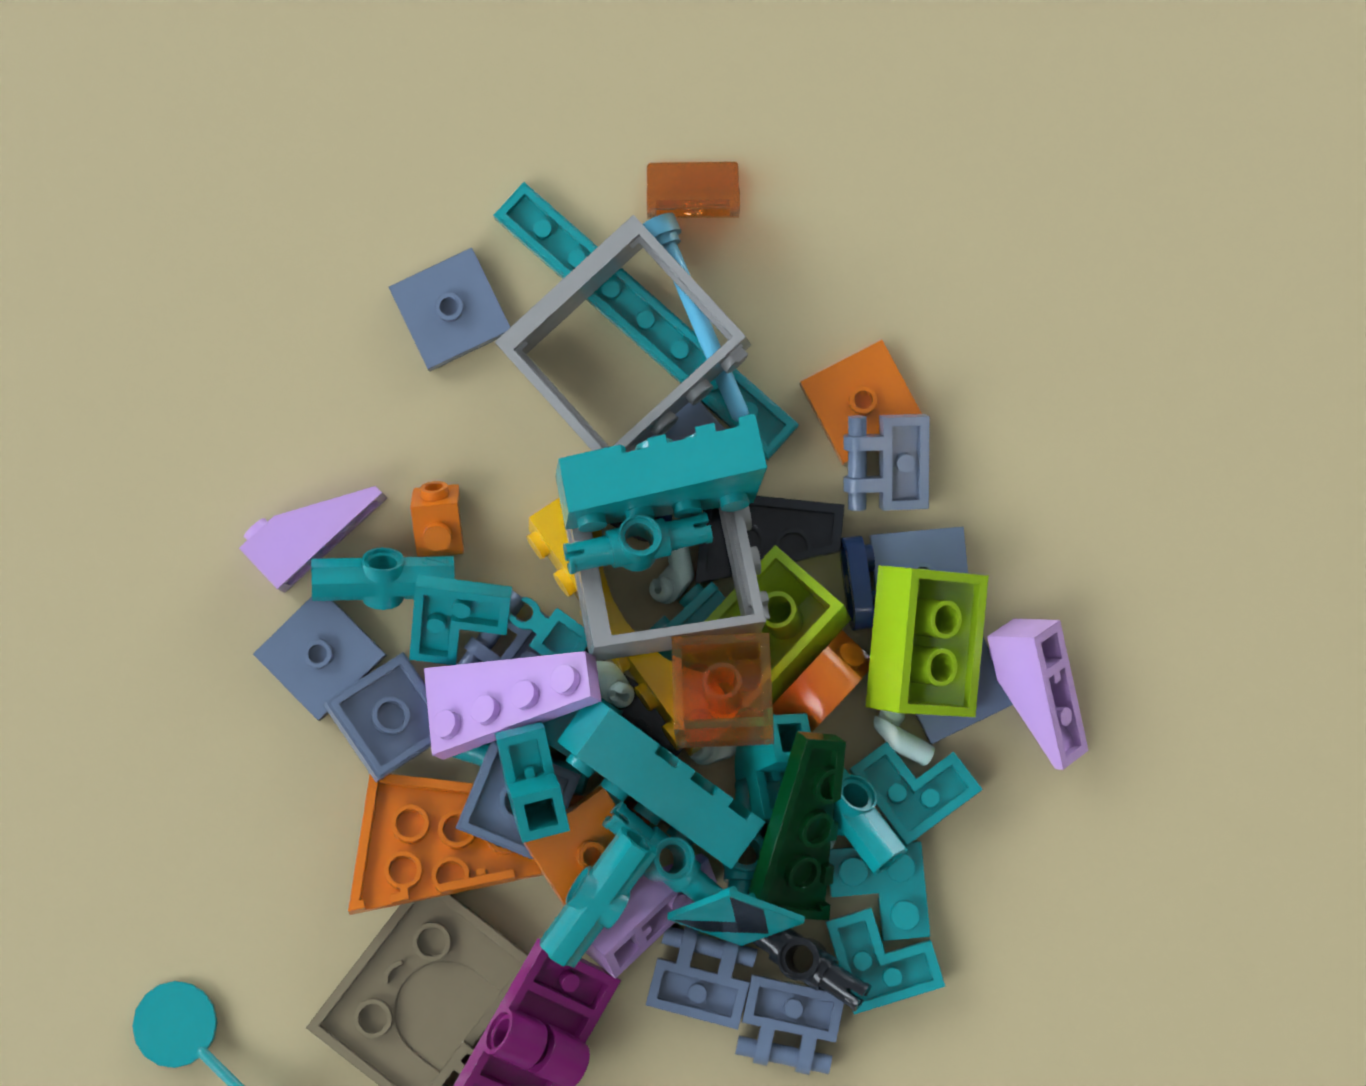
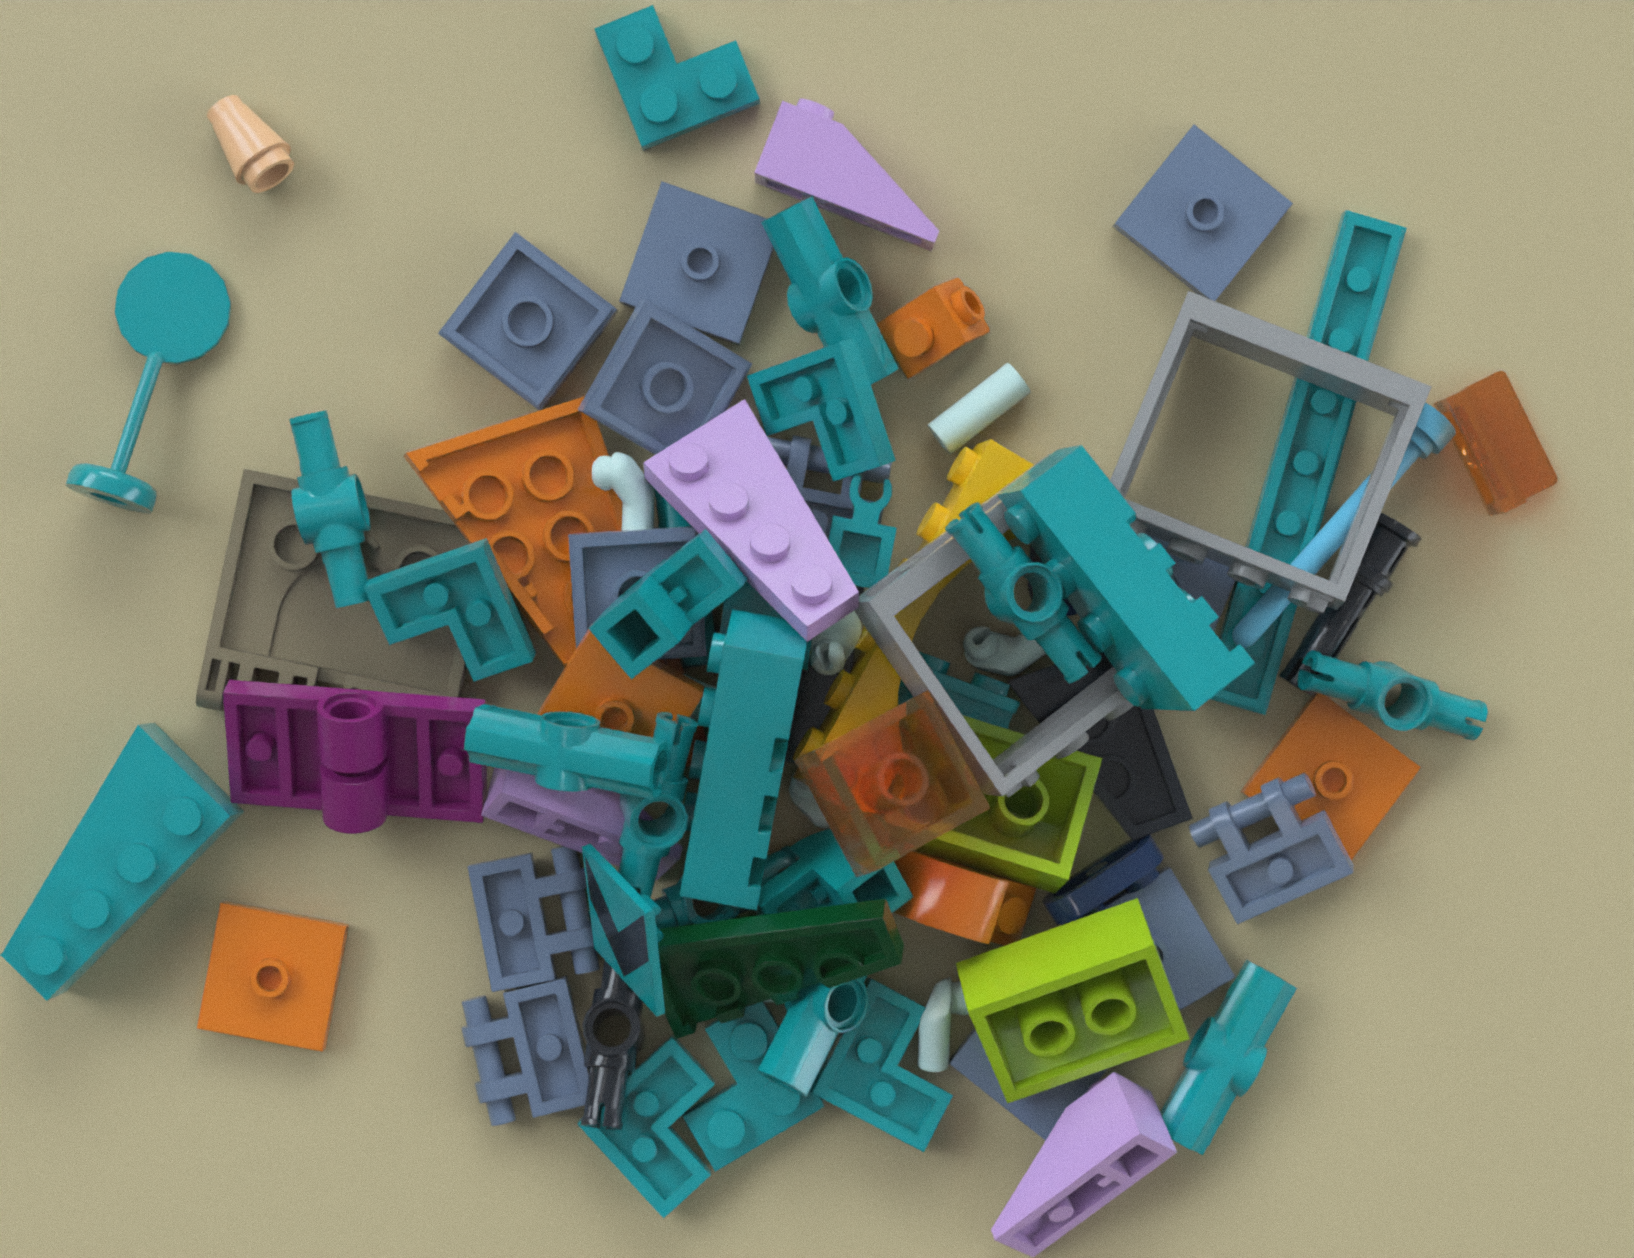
camera: 65 degrees right, 5 degrees up
(92, 919) = (251, 147): none -> light nougat cone
(200, 622) = (668, 96): none -> teal plate
(302, 788) = (528, 322): none -> sand blue plate
(360, 980) = (330, 508): none -> teal pin
(441, 771) = (628, 482): none -> light aqua arm
(460, 917) = (459, 591): none -> teal plate
(506, 516) = (979, 408): none -> light aqua axle
(762, 352) = (1334, 627): none -> black pin
(809, 347) = (1368, 683): none -> teal pin
(1012, 558) = (1225, 1056): none -> teal piece

